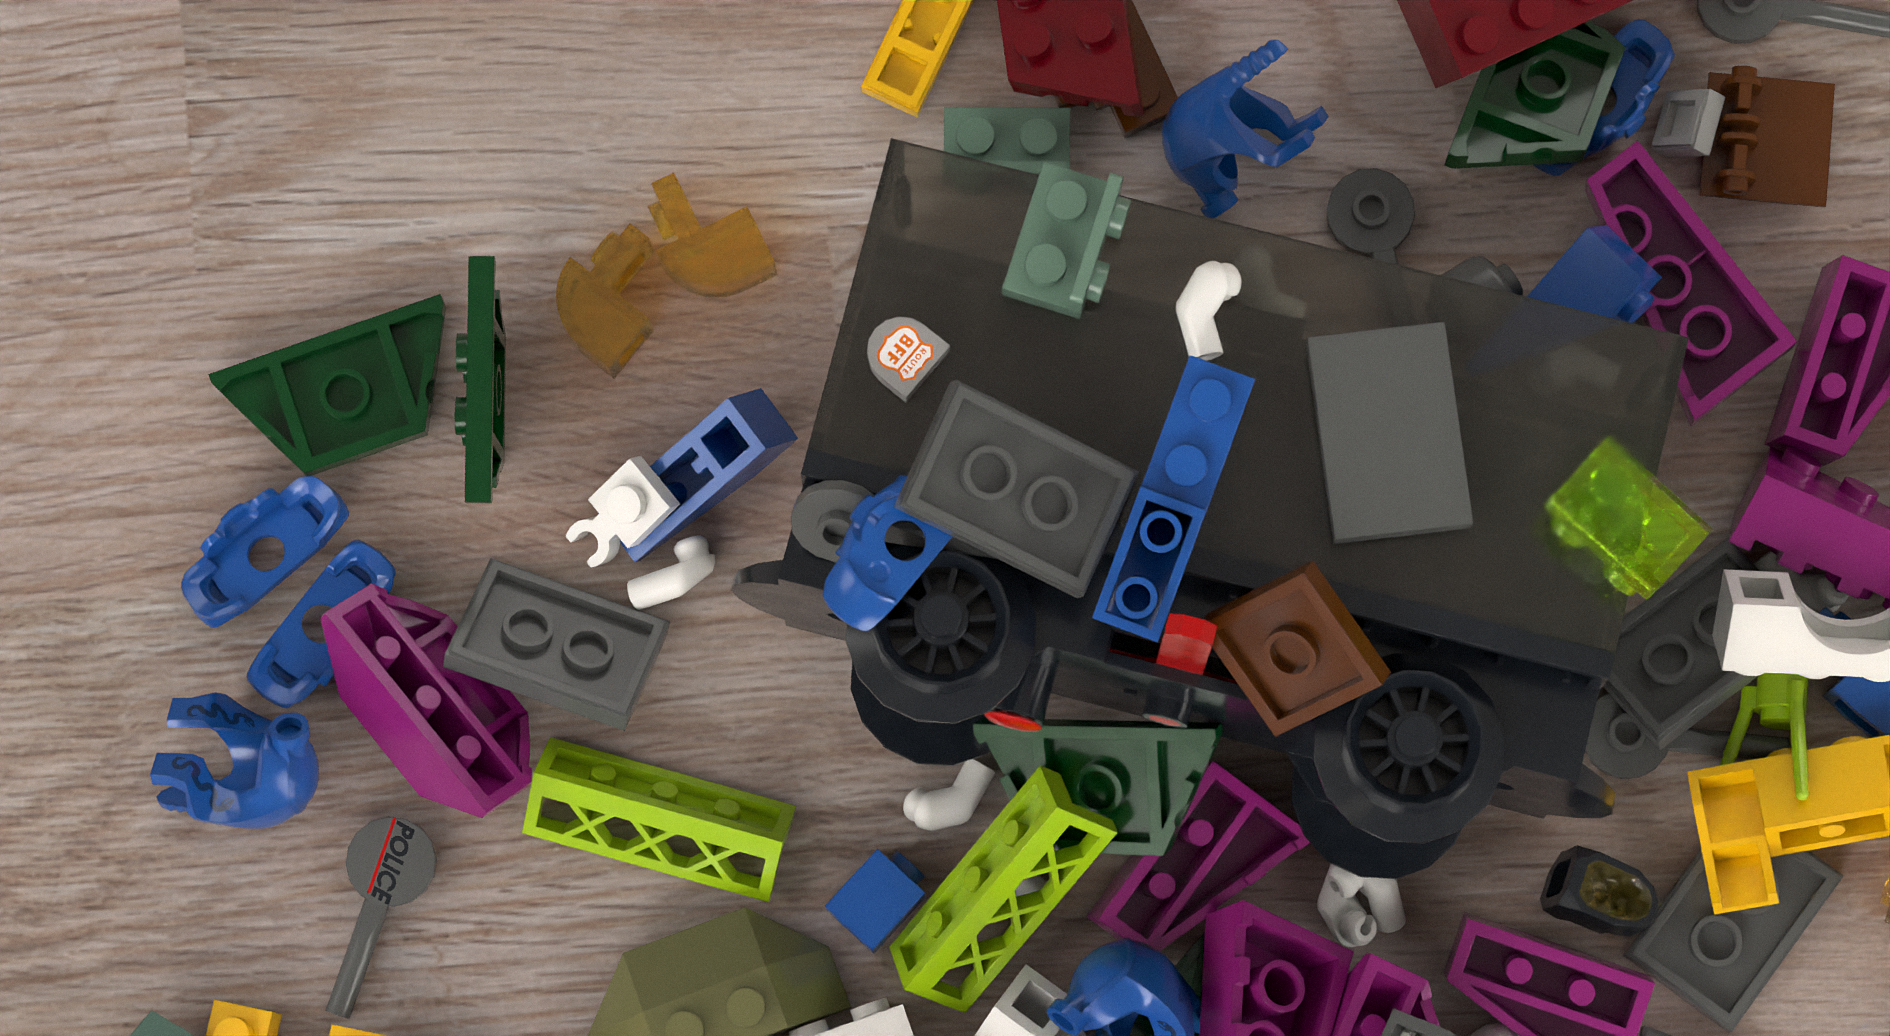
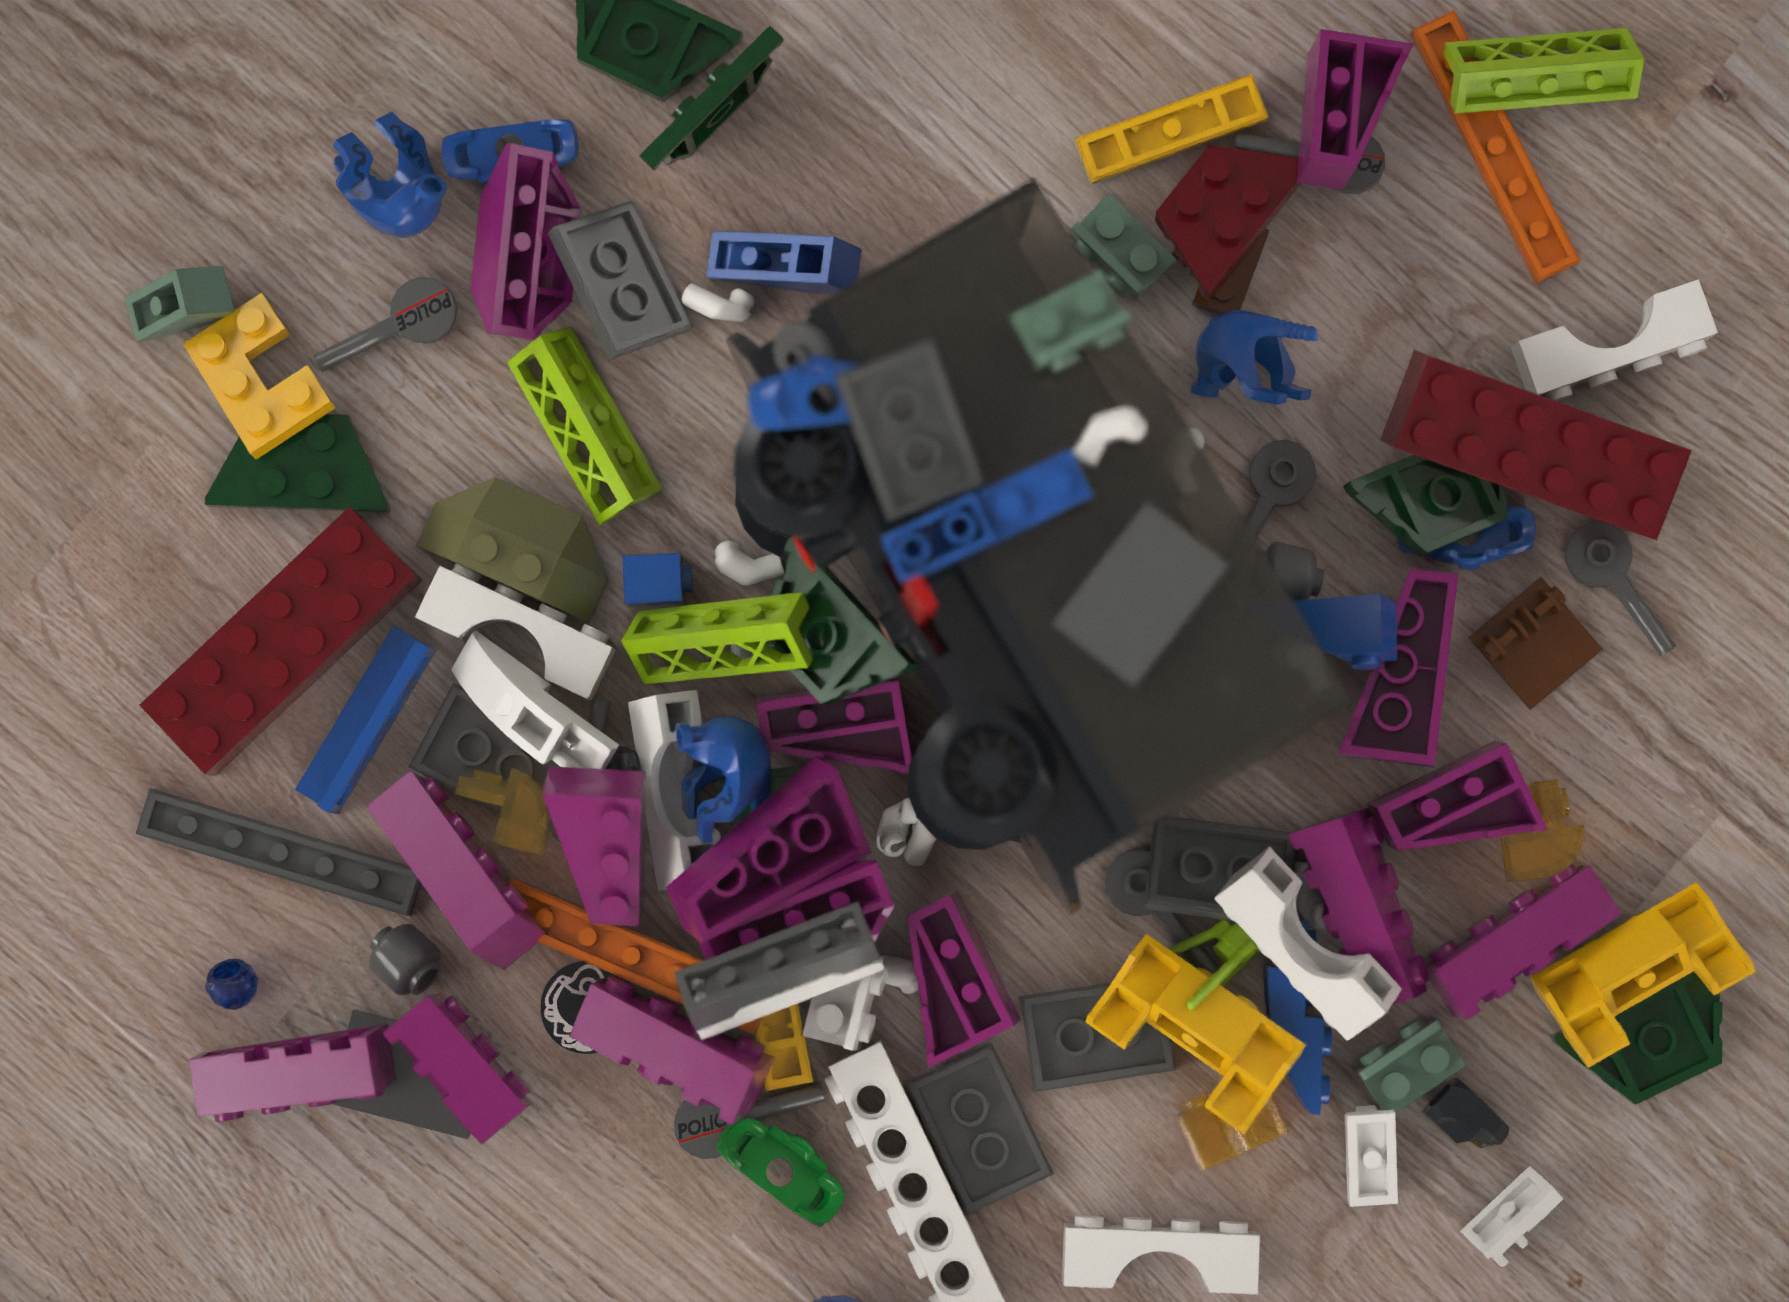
camera: 45 degrees right, 5 degrees up
(224, 579) = (482, 76): blue piece -> none
(590, 306) = (815, 115): clear yellow brick -> none
(628, 510) = (727, 245): white plate -> none
(710, 259) = (902, 153): clear yellow brick -> none
(904, 354) = (923, 300): tile -> none
(1295, 649) = (974, 659): reddish brown plate -> none
(1599, 893) = (1036, 951): black rock -> none
(1626, 520) = (1216, 765): clear neon green bracket -> none
(1688, 123) = (1500, 592): light grey tile -> none

